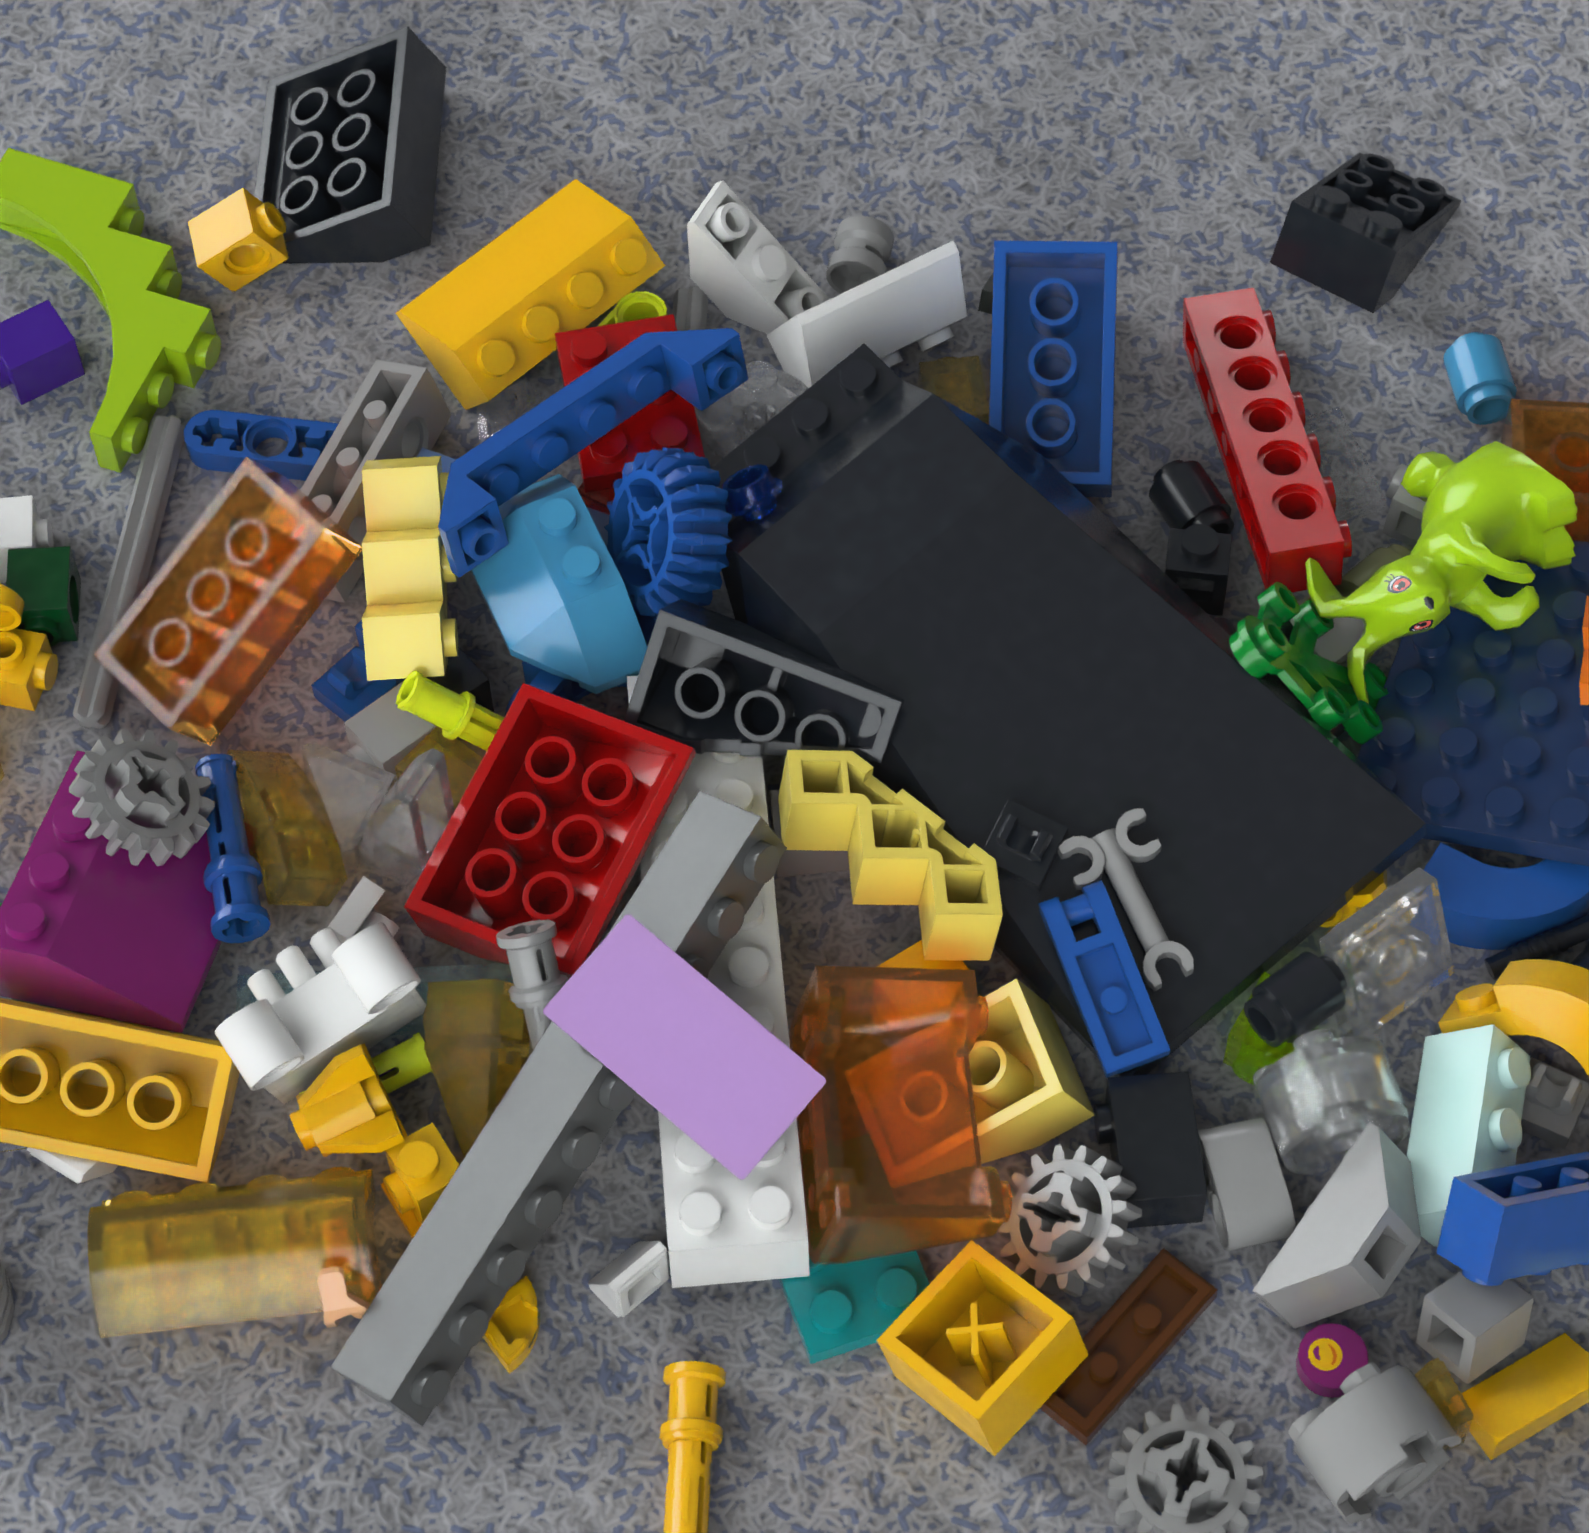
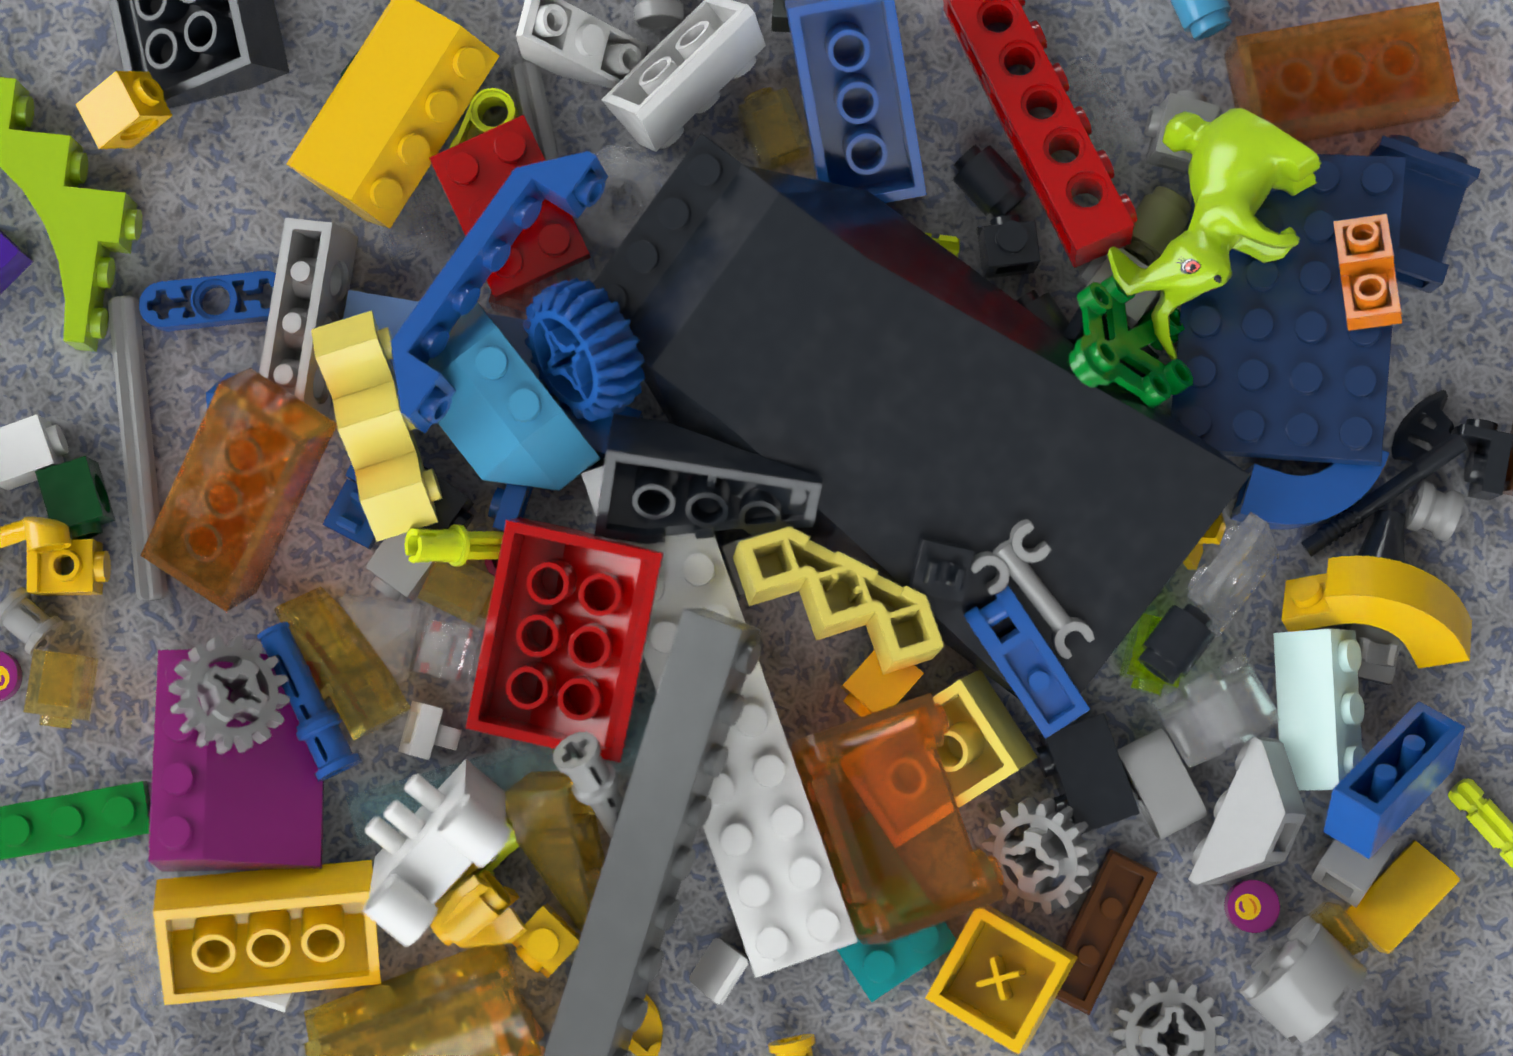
camera: 20 degrees left, 25 degrees up
(684, 1046) = (727, 824): lavender sticker -> none
(752, 492) = (646, 305): clear blue plate -> none

